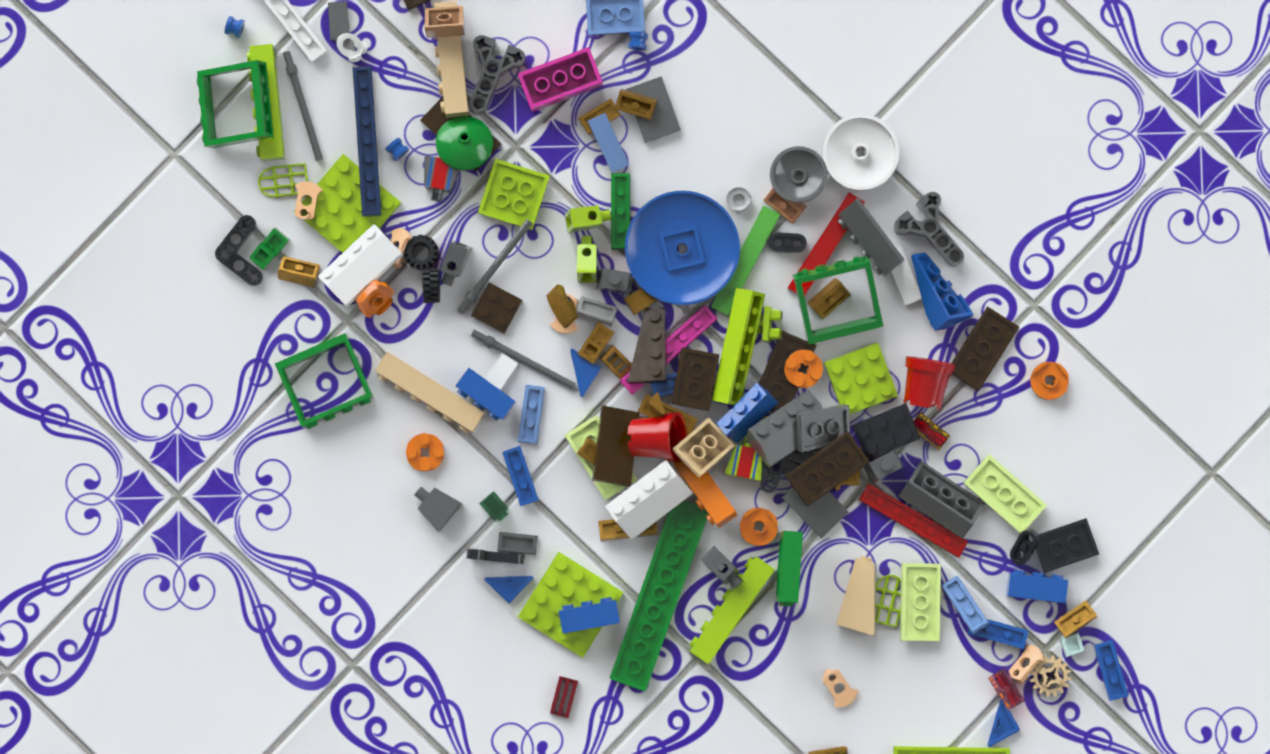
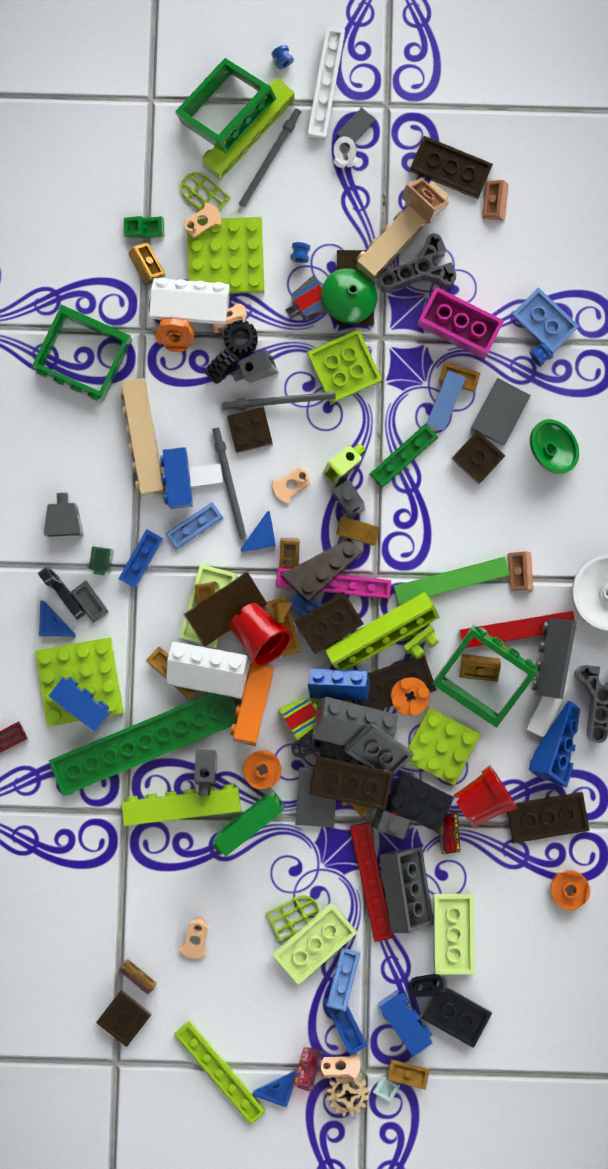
camera: 45 degrees right, 0 degrees up
(233, 256) = (115, 205): black beam -> none
(366, 141) = (285, 226): dark blue tile -> none
(414, 454) = (88, 466): orange plate -> none
(561, 307) = (292, 476): pearl gold slope -> none
(578, 219) = (368, 430): lime torso -> none
(596, 311) = (313, 504): light grey tile -> none
(596, 343) = (289, 525): pearl gold slope -> none
(635, 104) = (493, 394): pearl gold slope -> none
(672, 157) = (478, 457): none -> dark brown plate
(686, 220) = (438, 505): blue dish -> none
(703, 447) = (282, 675): tan slope -> none
(716, 88) = (554, 446): none -> green dish
(735, 192) = (495, 527): light grey piece -> none
(787, 242) = (494, 598): black plate -> none
(795, 162) = (558, 551): dark grey dish -> none
(859, 602) = (276, 895): tan slope -> none
(1110, 670) = (393, 1136): blue plate -> none

